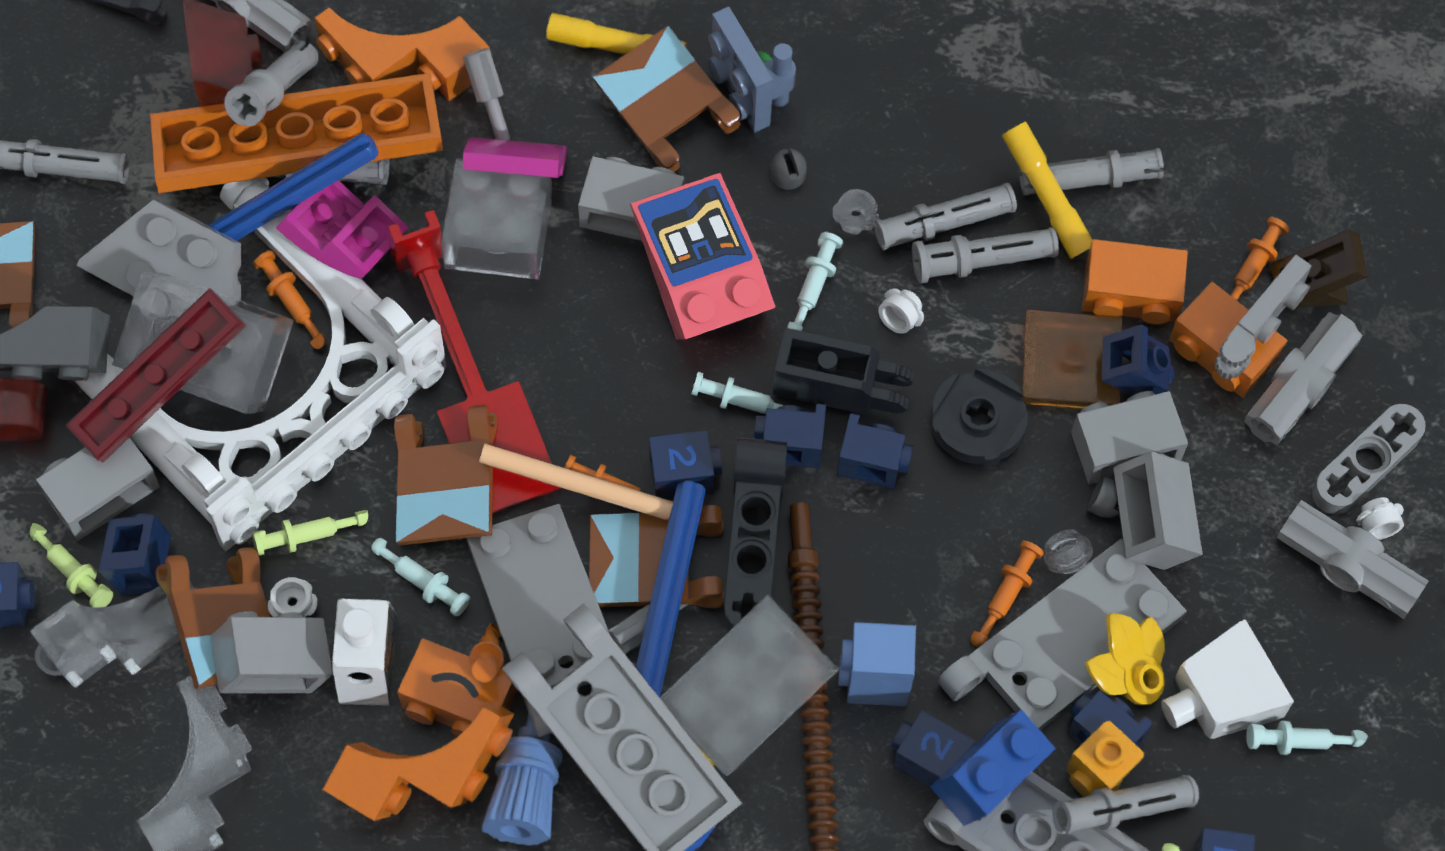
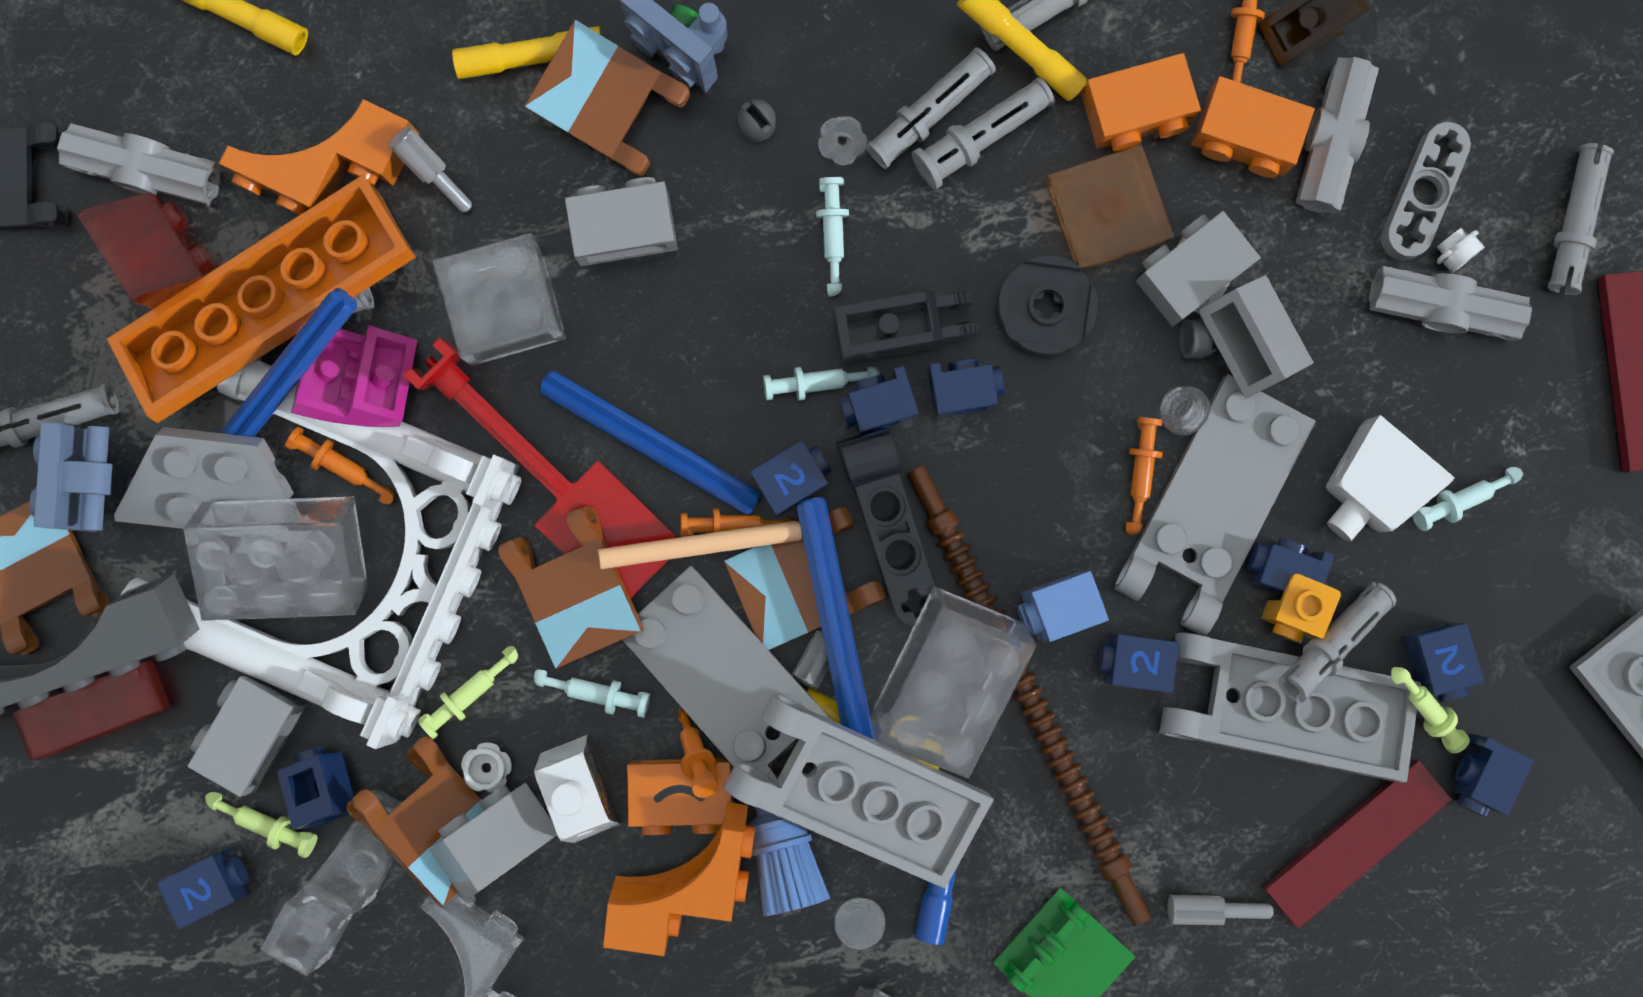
camera: 25 degrees left, 20 degrees up
(64, 206) = (71, 477): none -> sand blue plate
(156, 375) = (251, 624): dark red tile -> none
(265, 89) = (207, 268): light grey pin -> none
(515, 157) = (489, 232): dark pink slope -> none
(572, 390) = (649, 442): none -> blue axle
(701, 257) = (719, 262): slope -> none
(901, 310) = (929, 227): white plate -> none
(992, 767) = (1212, 670): blue brick -> none
(1132, 654) = (1290, 496): yellow plate -> none
(1150, 361) = (1188, 186): dark blue brick -> none
(1261, 319) = (1288, 102): light grey hinge -> none

